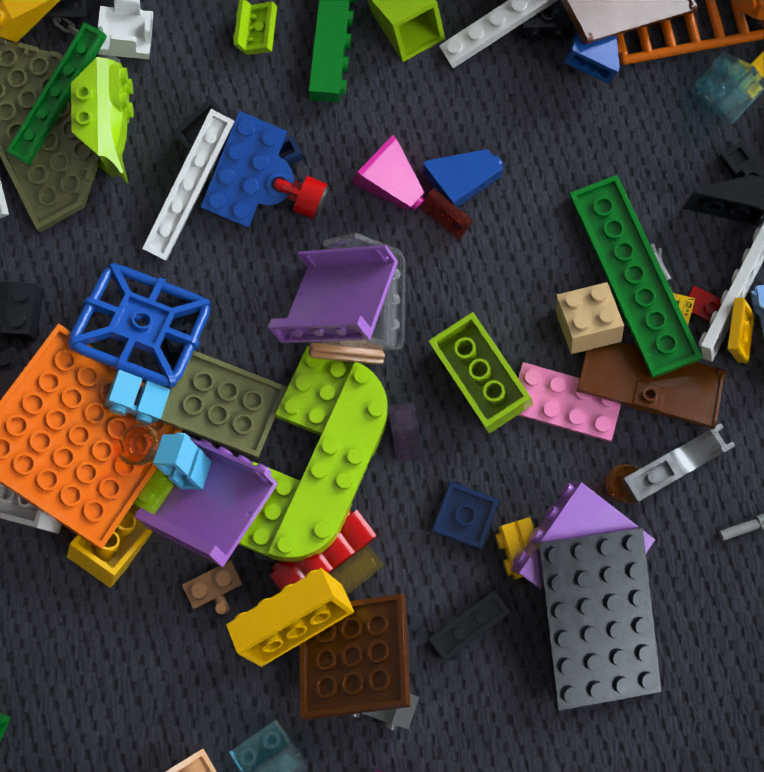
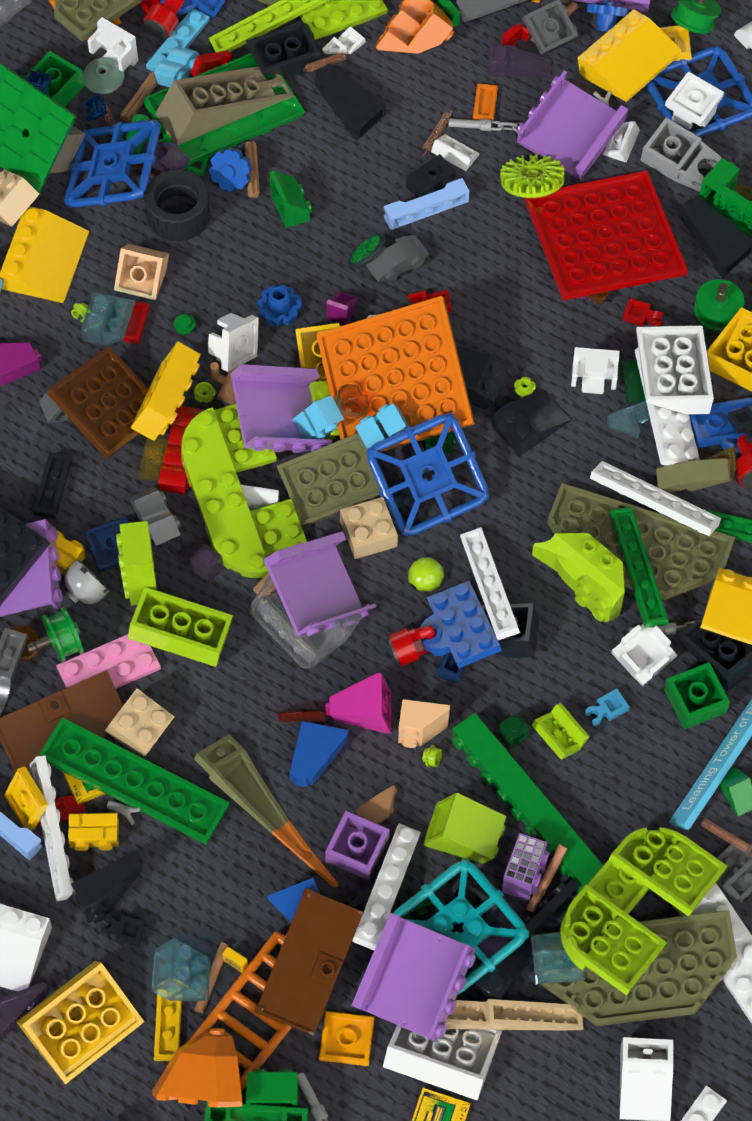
camera: 135 degrees right, 15 degrees down
(44, 575) = (341, 307): none -> magenta slope
(98, 630) = (279, 305): none -> blue plant
(184, 610) = (237, 341): none -> white panel
(196, 15) = (609, 705): none -> dark azure plate
(201, 692) = (184, 324): none -> green plate
(227, 252) = (426, 574): none -> lime hair
(235, 330) = (368, 528): none -> tan brick
(240, 735) = (137, 323): none -> red plate
(243, 595) = (204, 387): none -> lime plate
(291, 57) = (513, 731): none -> dark green brick
(298, 442) = (259, 497): none -> white slope
(360, 118) = (421, 722): none -> light nougat slope
(372, 95) = (432, 756): none -> lime plate
(406, 508) = (151, 507): none -> dark grey brick
(454, 90) = (378, 807): none -> medium nougat slope
(475, 450) = (136, 559): none -> lime brick
(501, 68) = (357, 845): none -> medium lavender brick
(526, 492) = (83, 584): none -> light grey cylinder
(545, 205) = (237, 776): none -> olive plate
(590, 456) = (61, 634): none -> green wheel
(674, 66) = (235, 959): none -> yellow tile
(688, 80) = (214, 971): none -> nougat bar
(701, 263) = (93, 830): none -> yellow brick

